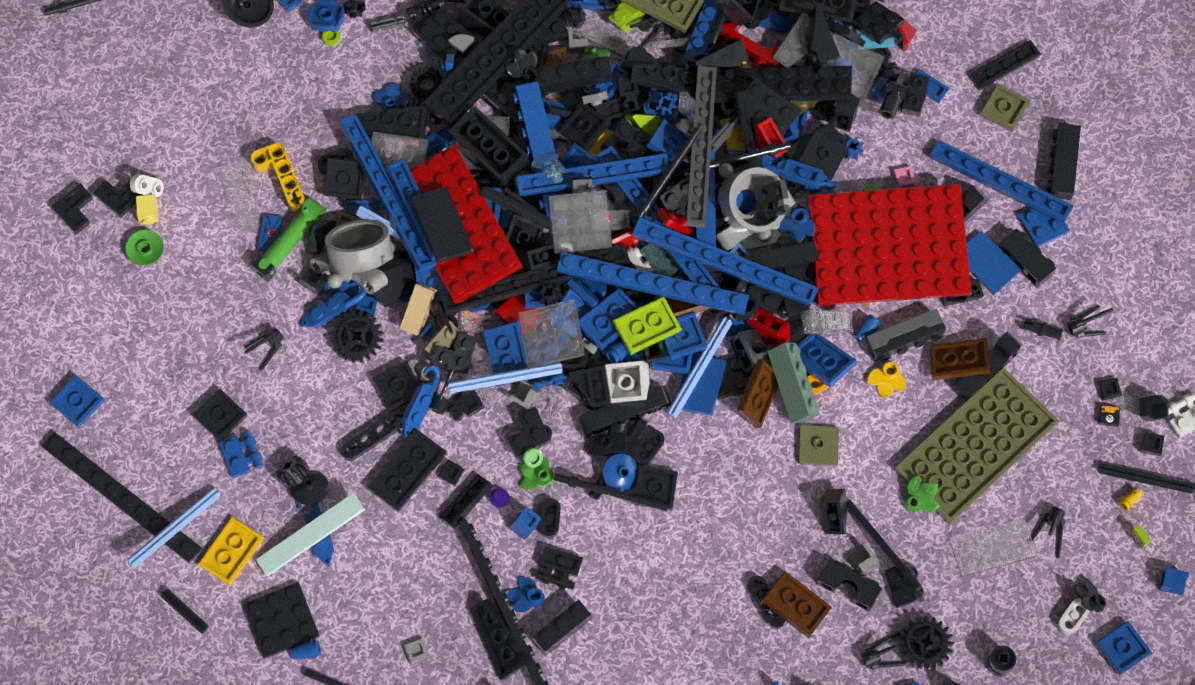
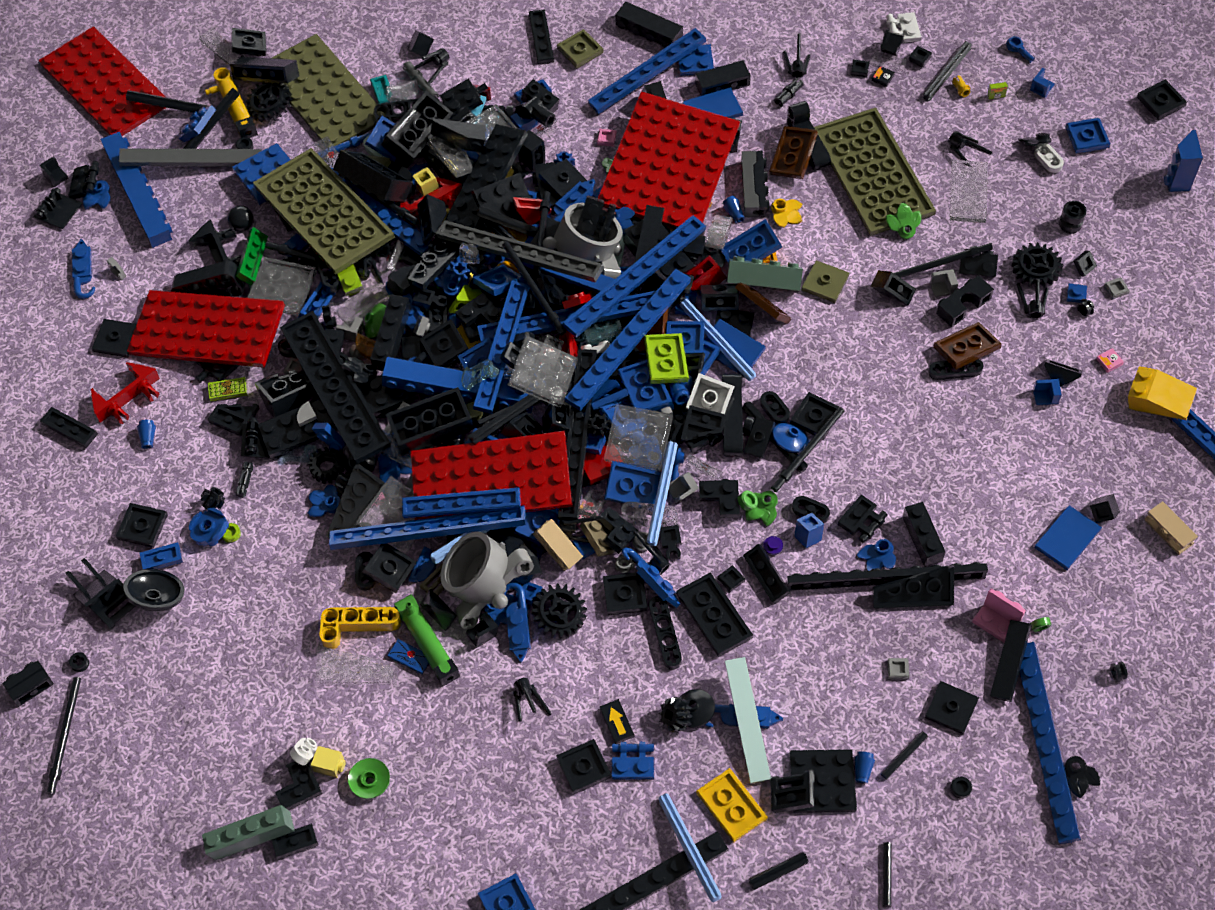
camera: 65 degrees left, 10 degrees down
(60, 175) = (248, 832): none -> sand green brick
(250, 597) = (792, 797): none -> black plate
(273, 427) = (617, 721): none -> black tile
(442, 224) = (491, 483): black tile -> none
(766, 33) = (425, 181): none -> light yellow brick

